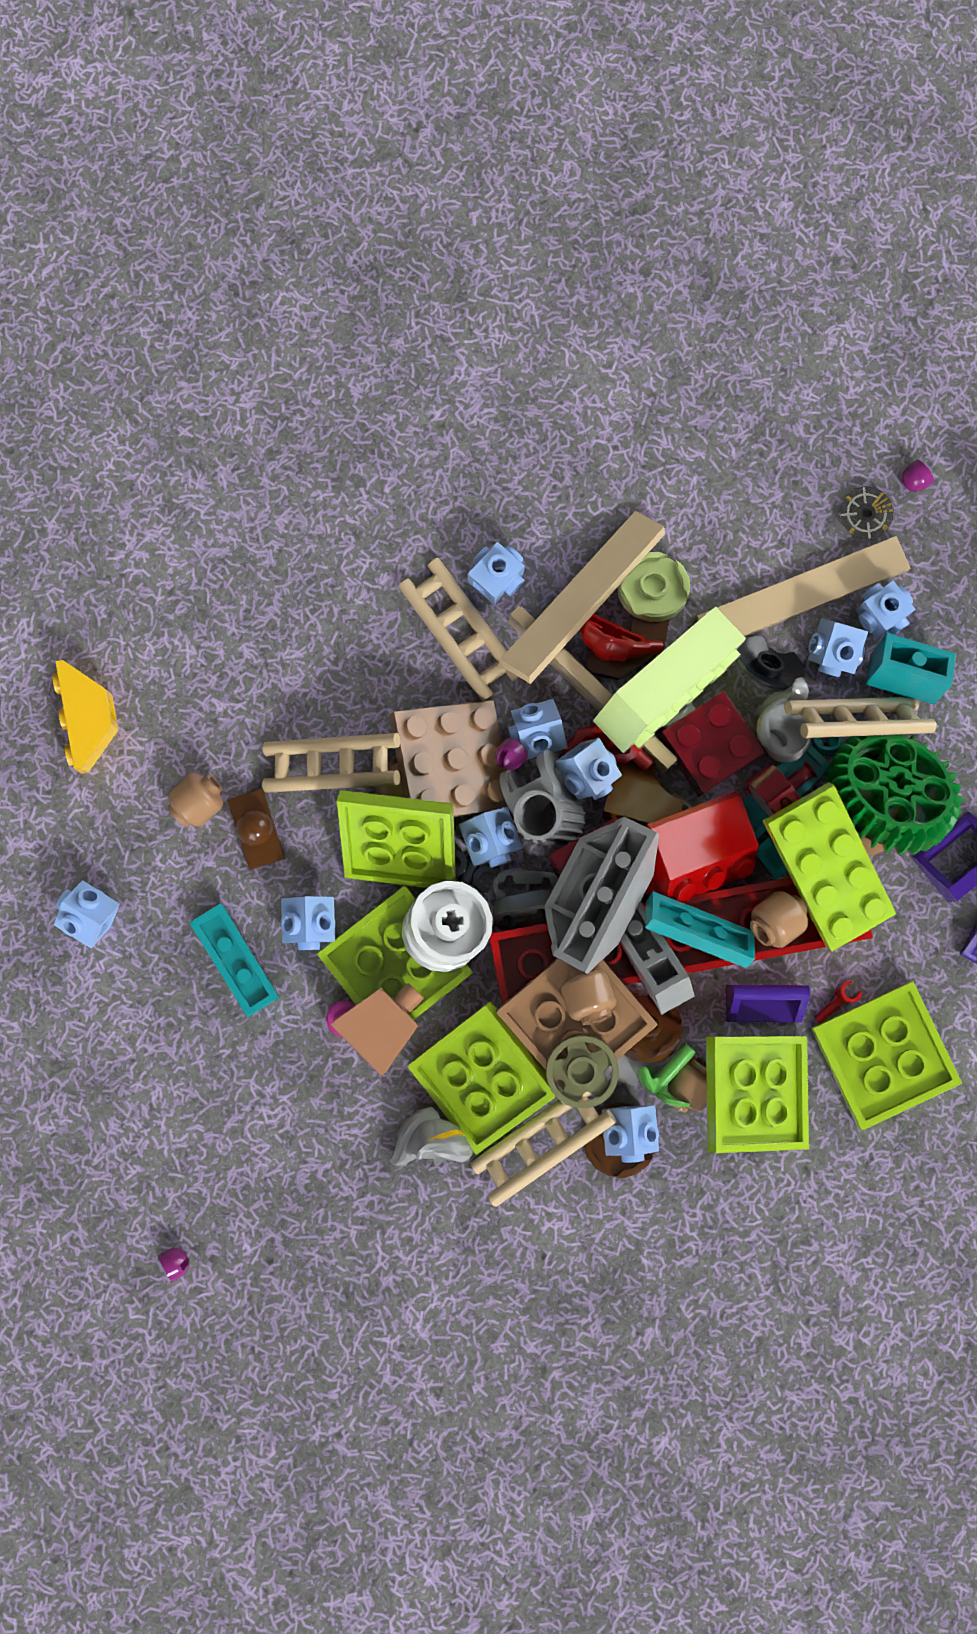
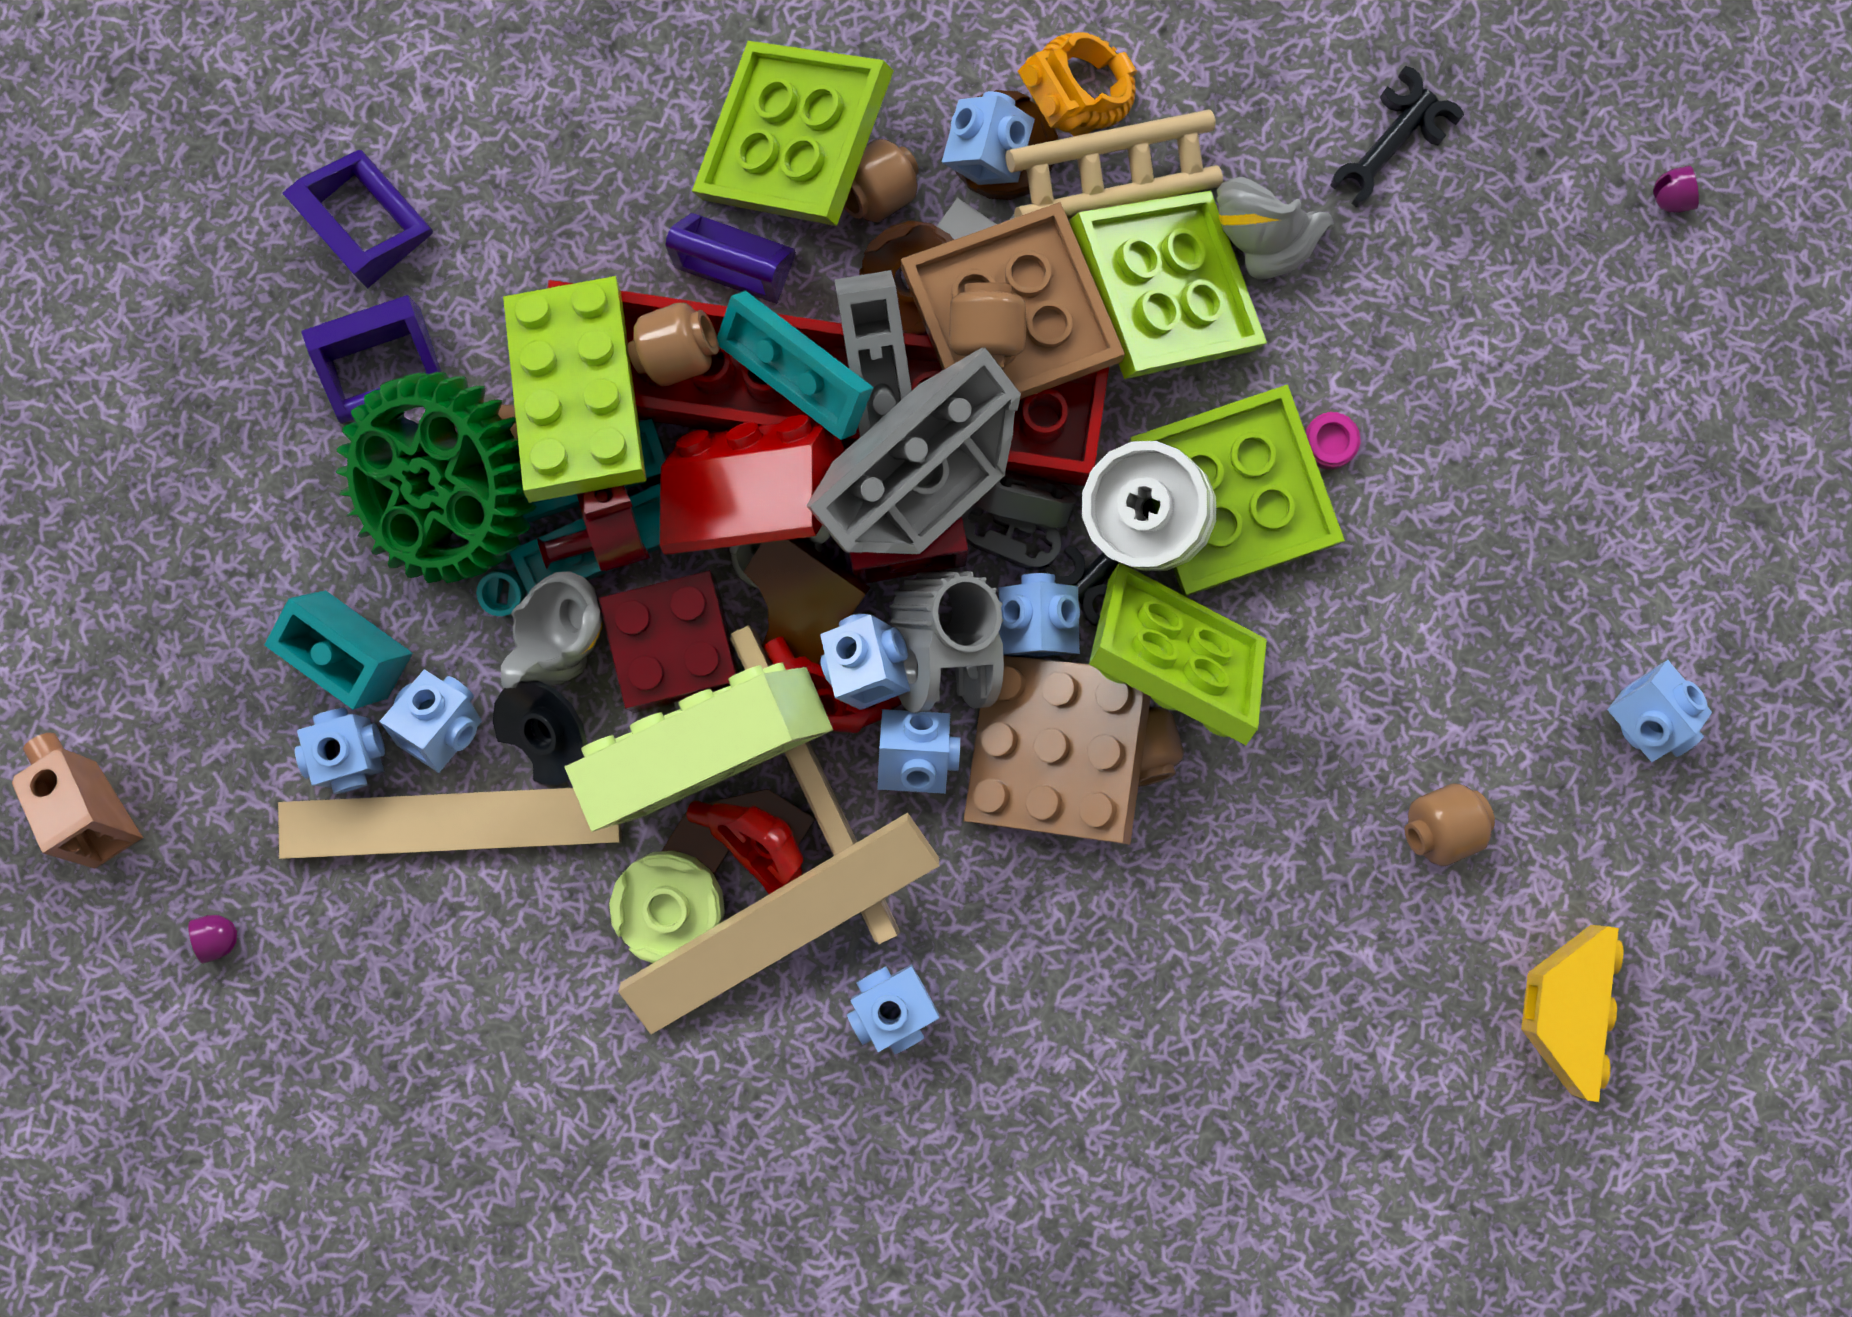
camera: 155 degrees left, 0 degrees up
(234, 960) = (1463, 574): teal plate -> none
(256, 829) = (1372, 752): reddish brown tile -> none
(308, 921) = (1343, 590): light blue brick -> none
(346, 778) = (1207, 819): tan bar -> none
(359, 1261) = (1418, 109): none -> black bar
(380, 1026) = (1291, 402): nougat torso -> none
(437, 624) = (1006, 964): tan bar -> none
(510, 754) = (969, 726): magenta hinge -> none
(582, 1071) = (1031, 230): olive wheel -> none
(597, 1178) = (1060, 95): none -> light orange piece
(658, 1082) = (927, 193): bright green plant -> none
(839, 999) = (628, 225): red hand -> none
(847, 724) = (463, 589): tan bar -> none
(875, 504) = (289, 914): clear smoke piece -> none
(886, 1055) = (591, 128): lime plate -> none

